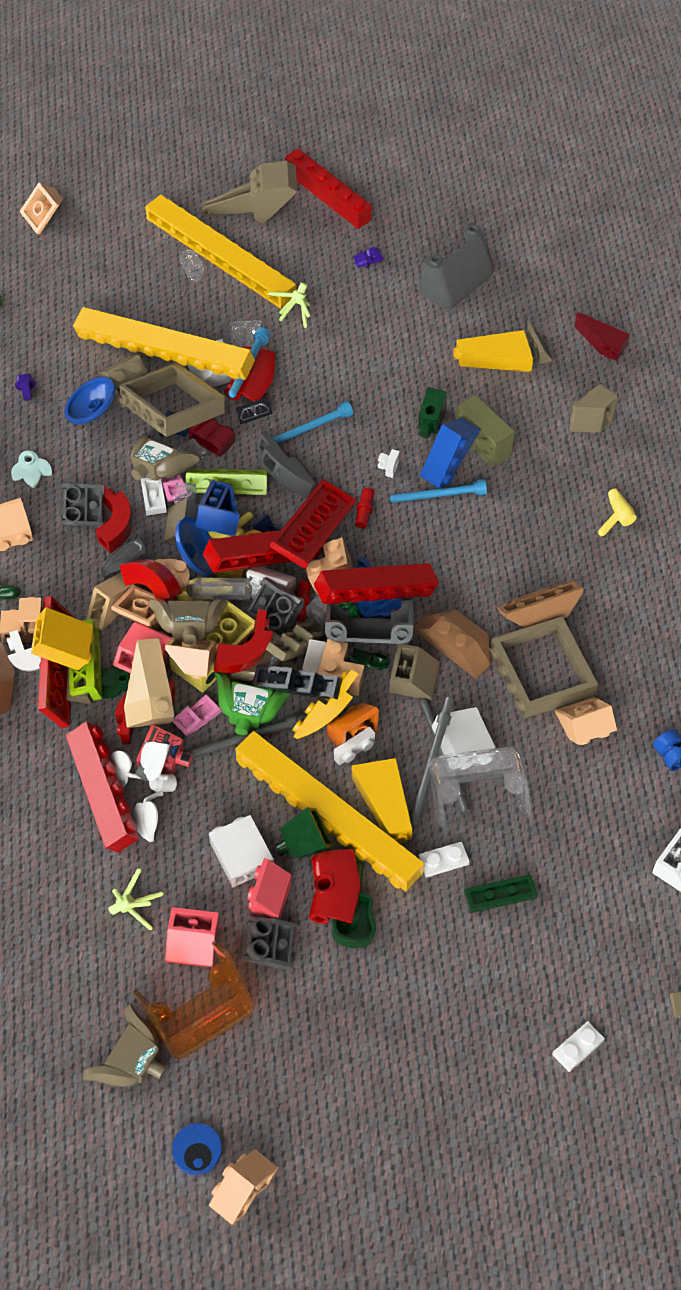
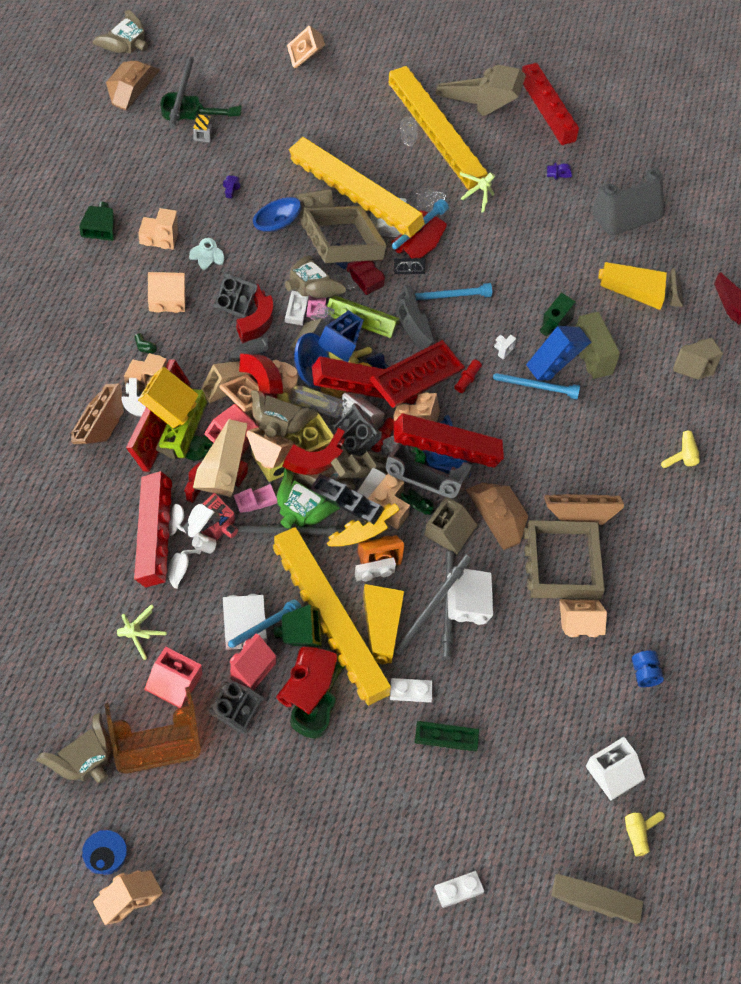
camera: 15 degrees right, 0 degrees up
(282, 818) = (289, 606): none -> dark azure piece
(477, 765) = (467, 621): clear windscreen -> none

